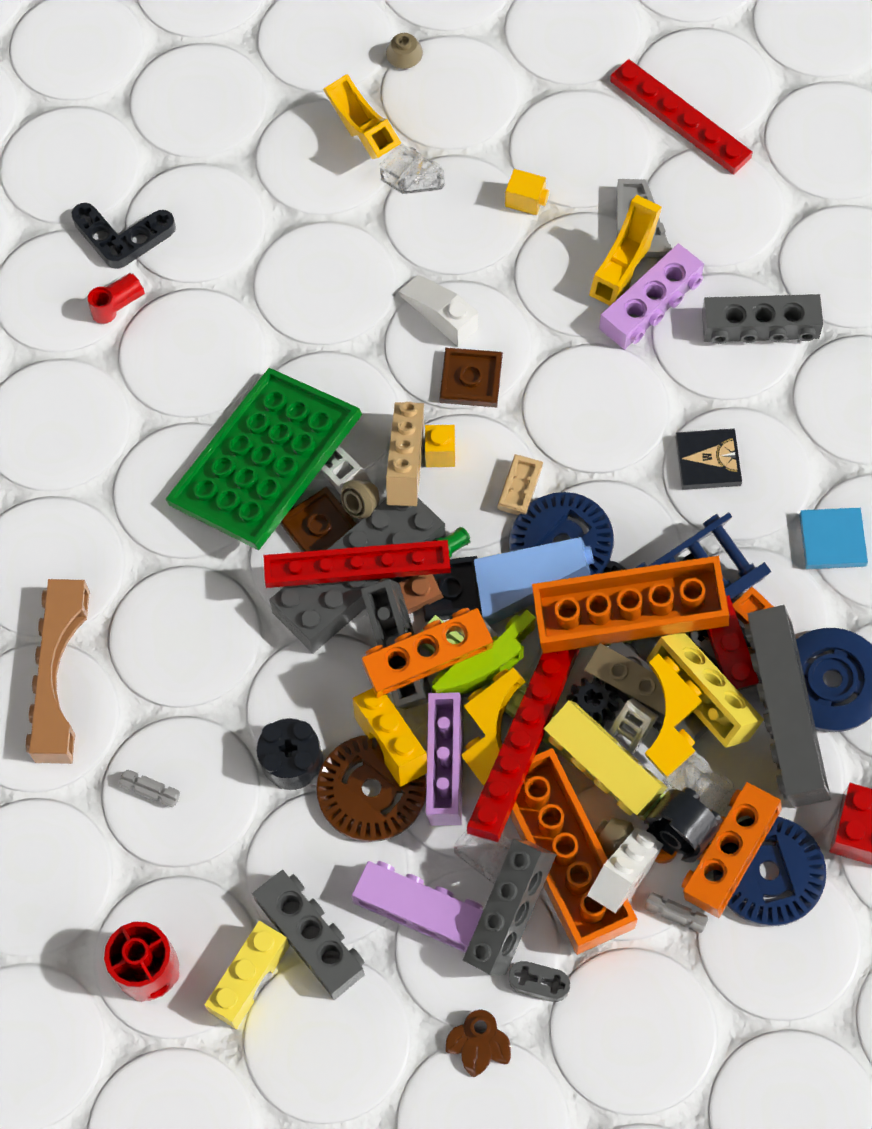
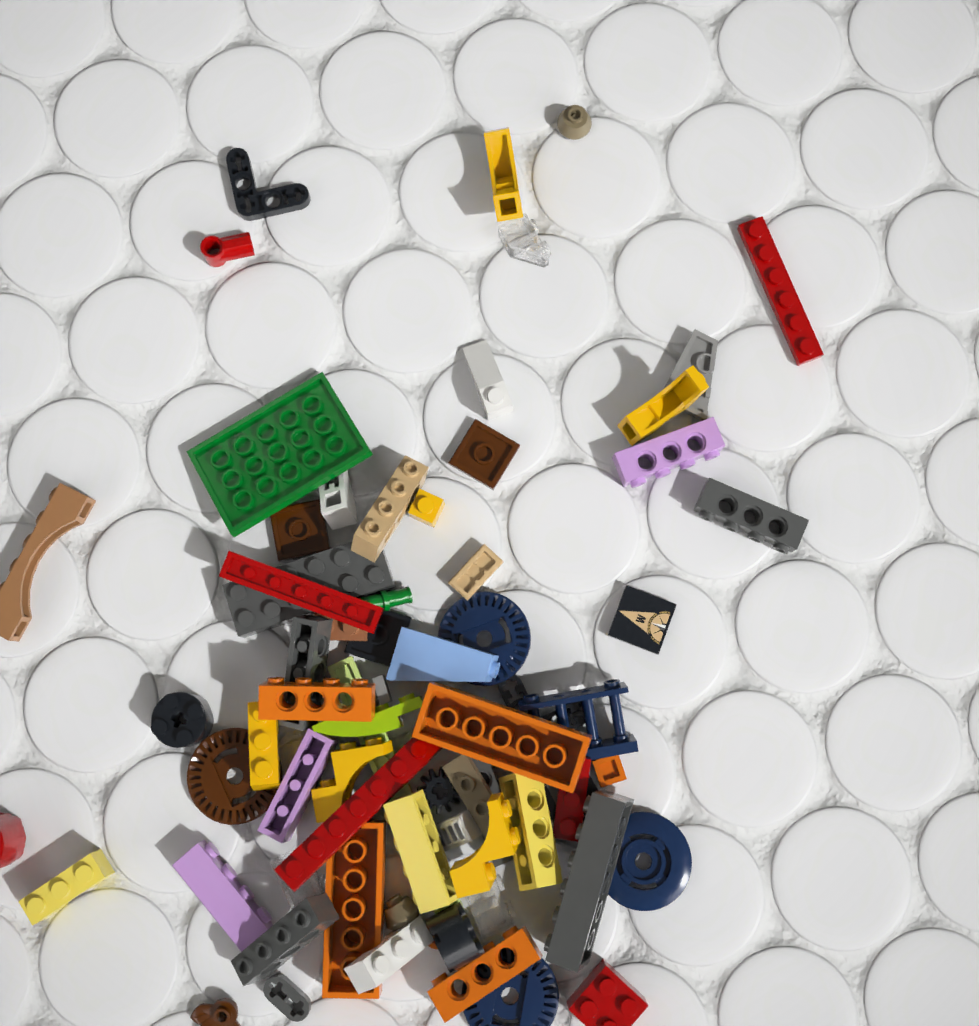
camera: 25 degrees right, 15 degrees up
(149, 788) = (65, 693): light grey axle -> none
(334, 977) = (129, 918): dark grey brick -> none
(359, 498) = (335, 531): dark tan cone -> none
(526, 192) = (611, 305): yellow brick -> none
(676, 912) = (418, 993): light grey axle -> none
(833, 538) = (708, 738): dark azure tile -> none

